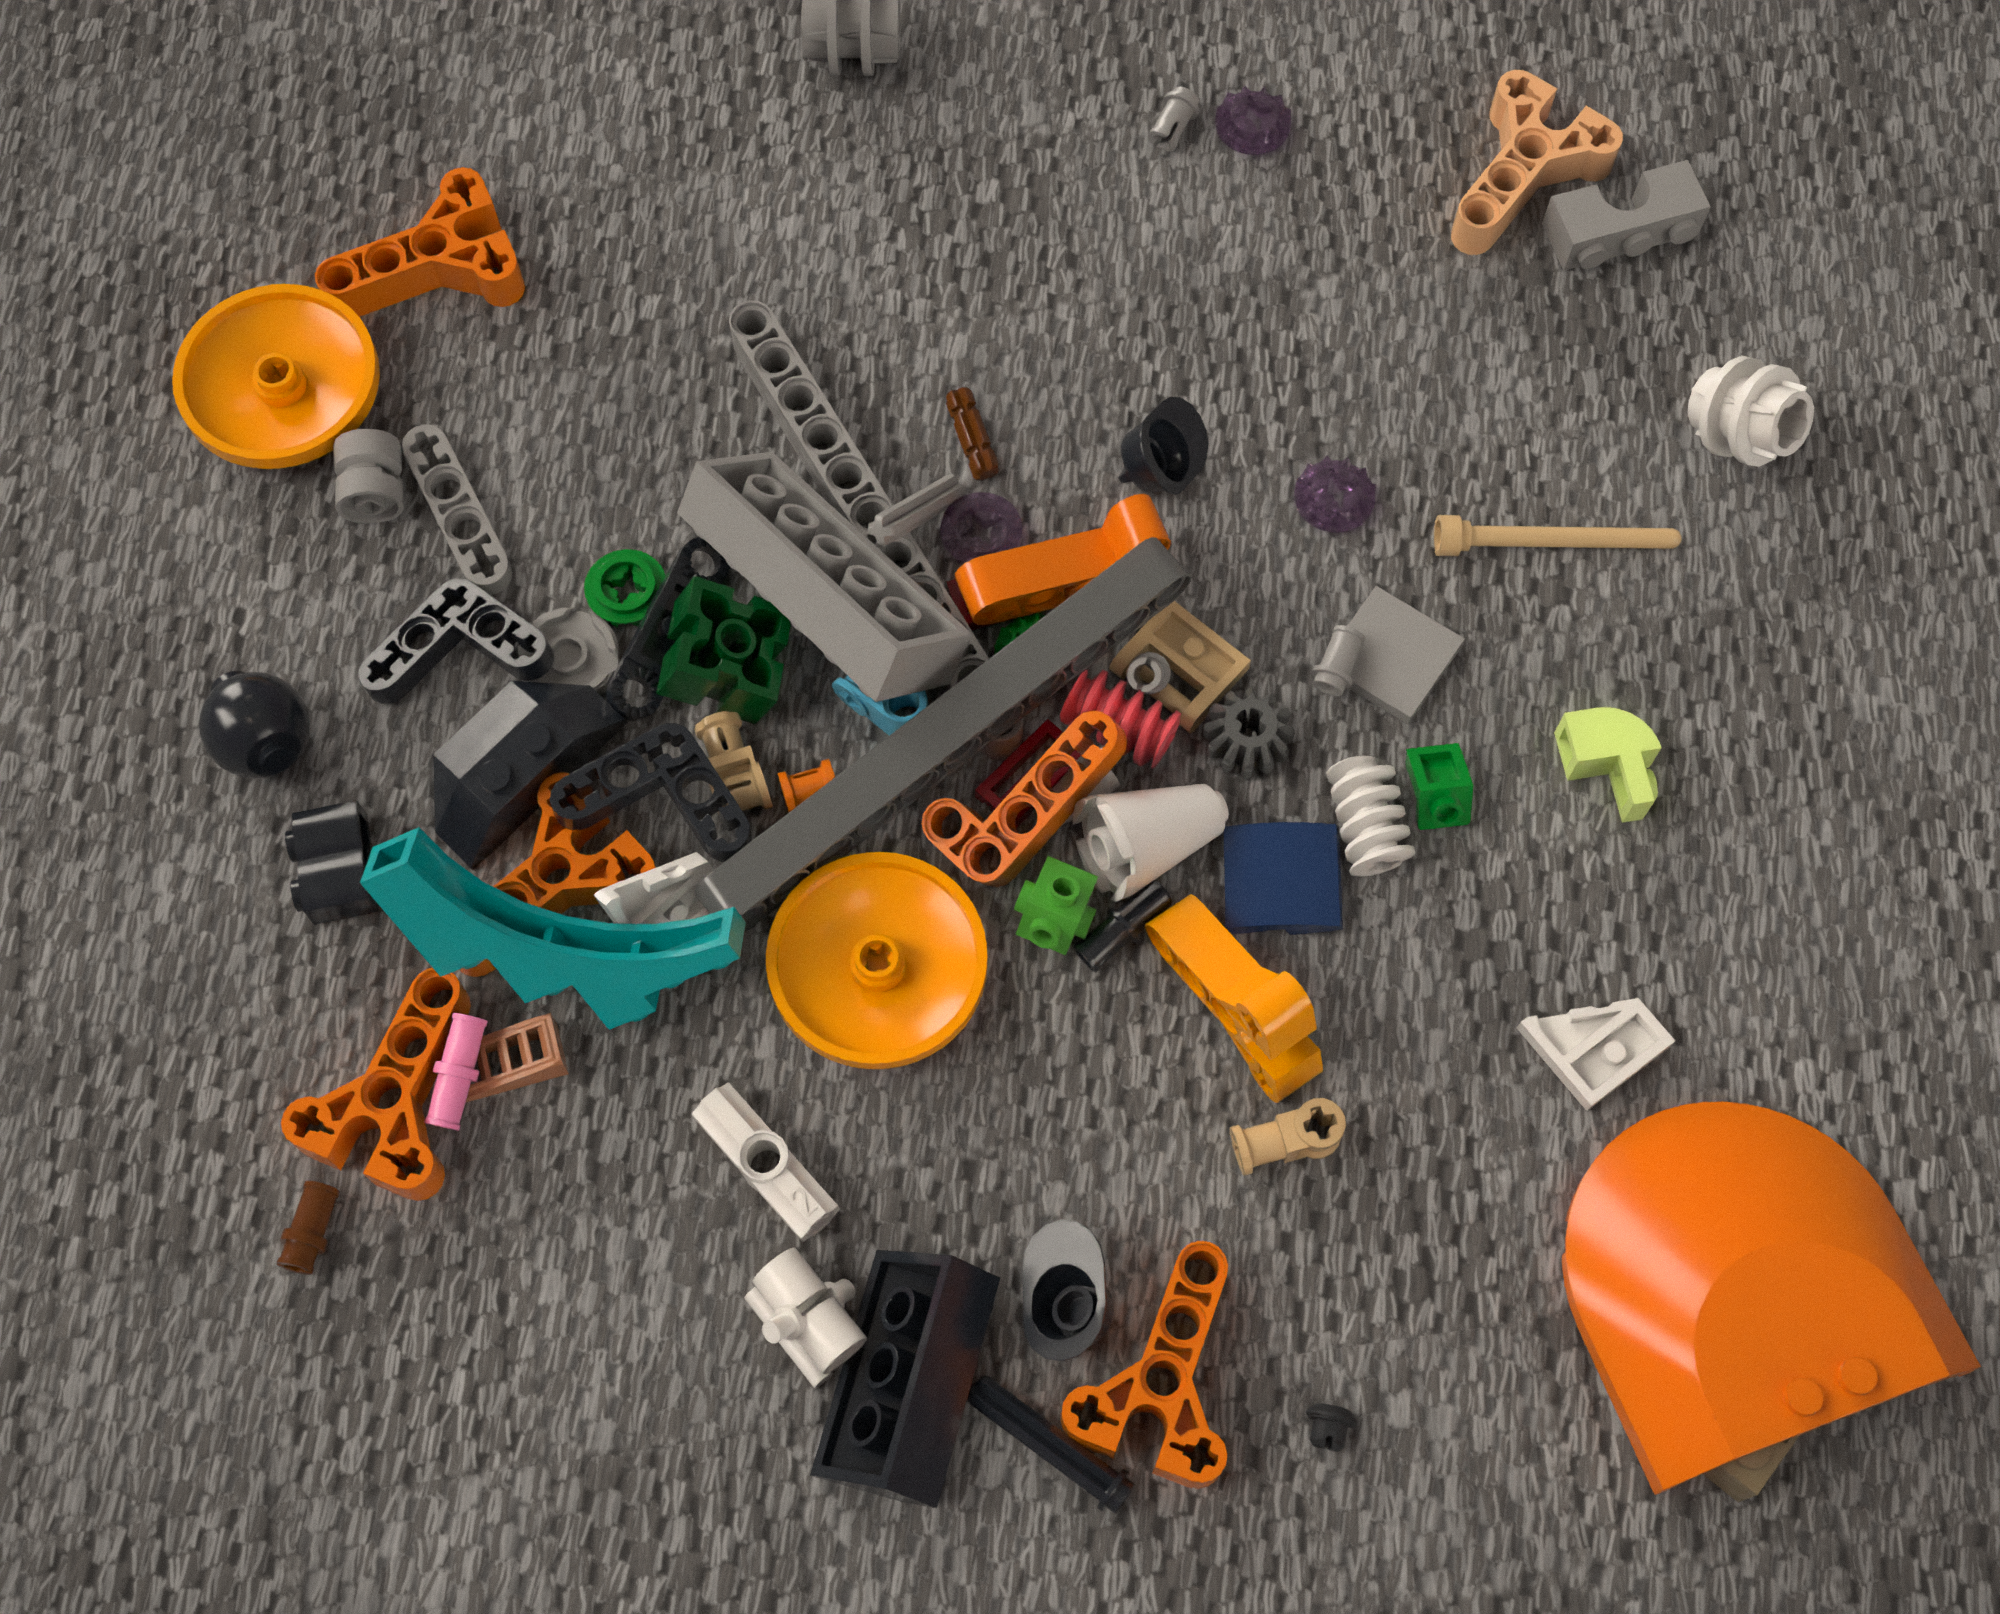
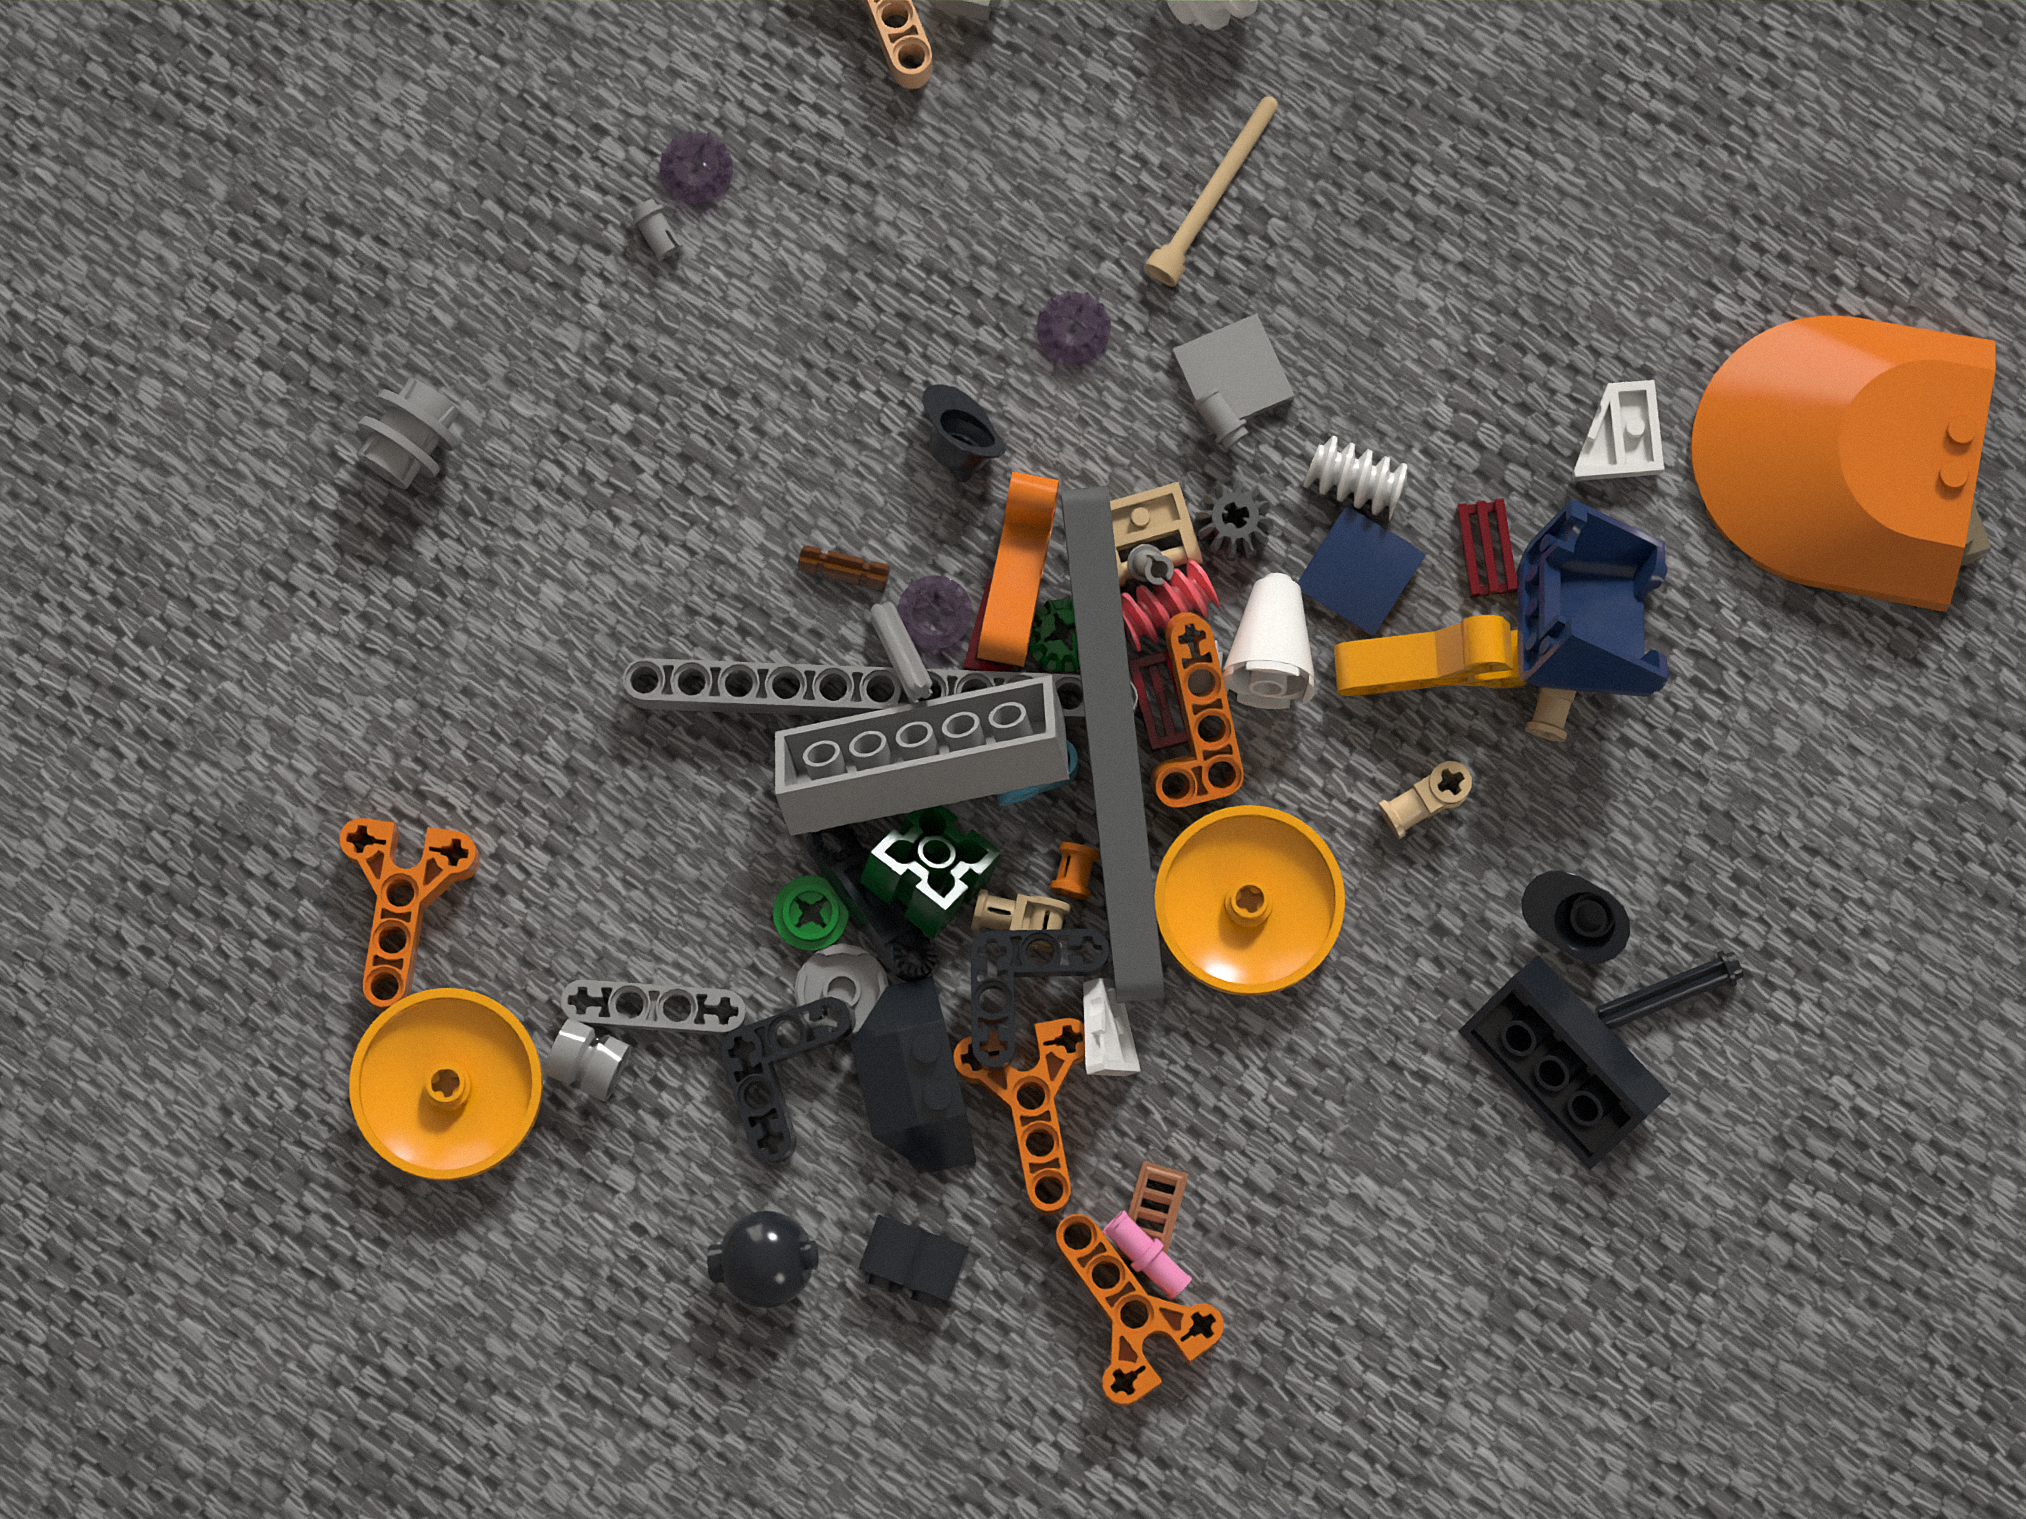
camera: 60 degrees left, 10 degrees up
(305, 1236) = (1194, 1425): reddish brown pin -> none
(539, 952) = (1102, 1140): teal arch -> none
(788, 1186) = (1381, 1066): white piece -> none
(805, 1315) = (1482, 1106): white pin -> none
(1056, 906) = (1287, 746): bright green brick -> none
(1095, 1072) = (1425, 798): none -> tan connector
(1122, 925) = (1327, 710): black axle -> none
(1180, 1411) = (1703, 888): orange beam -> none
(1330, 1423) = (1771, 795): black piece -> none
(1396, 1109) = (1585, 605): none -> dark blue windscreen
(1423, 956) = (1481, 509): none -> dark red tile
(1440, 786) = (1360, 409): green bracket -> none
(1612, 744) = (1411, 264): yellowish green brick -> none

